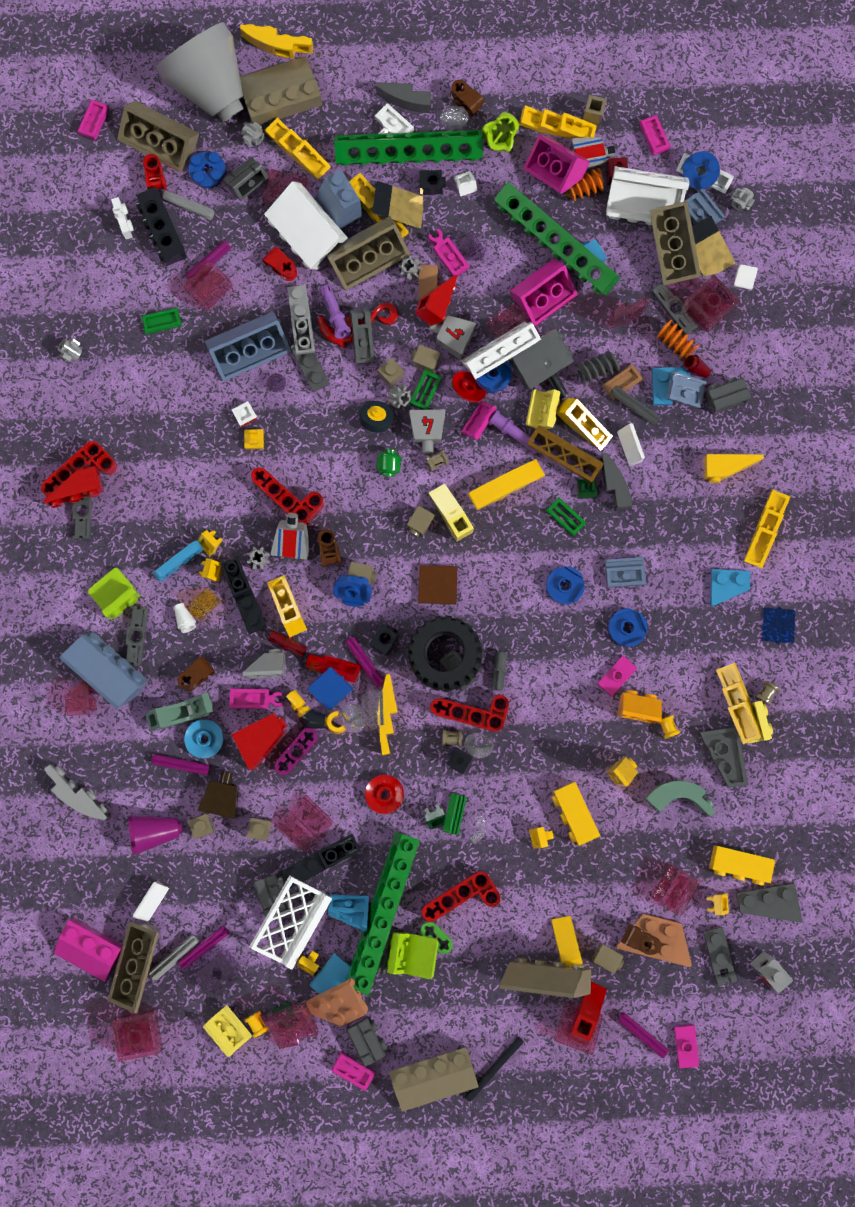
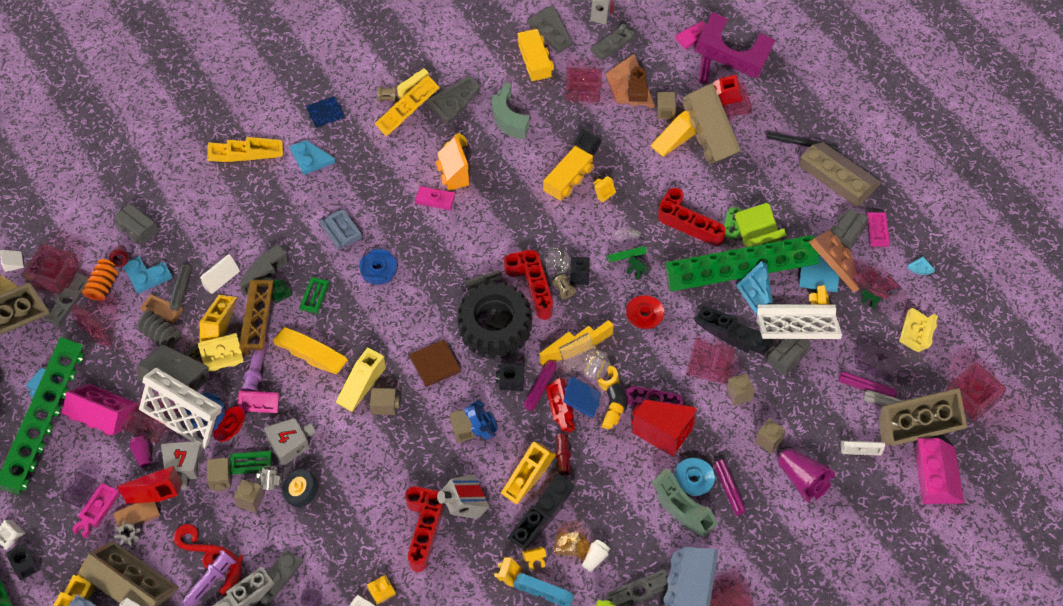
camera: 115 degrees left, 25 degrees down
(81, 800) = (820, 554): light grey slope -> none
(197, 673) = (641, 514): reddish brown piece -> none
(221, 797) = (735, 435): dark brown torso -> none
(252, 699) = (631, 456): dark pink plate -> none
(256, 1024) = (895, 315): yellow bush -> none
(263, 558) = (498, 524): light grey gear -> none
(267, 666) = (595, 454): light grey slope -> none
(292, 1084) = (921, 266): none -> medium azure tile
(328, 549) = (455, 462): reddish brown piece -> none
(362, 336) = (222, 540): dark grey plate -> none
(388, 463) = (341, 455): green head -> none
(398, 204) = (61, 578): pearl gold sticker -> none
(437, 460) = (316, 417): dark tan bush -> none
(483, 308) = (141, 450): none -> magenta cone
(600, 851) = (587, 142): none -> black brick
(622, 772) = (515, 153): yellow slope -> none
(632, 618) = (389, 216): blue plate -> none
(655, 1050) = (748, 62): none -> magenta arch
(686, 390) = (147, 254): sand blue plate -> none
(720, 904) = (575, 55): yellow tile -> none
(721, 466) = (204, 197): yellow slope -> none

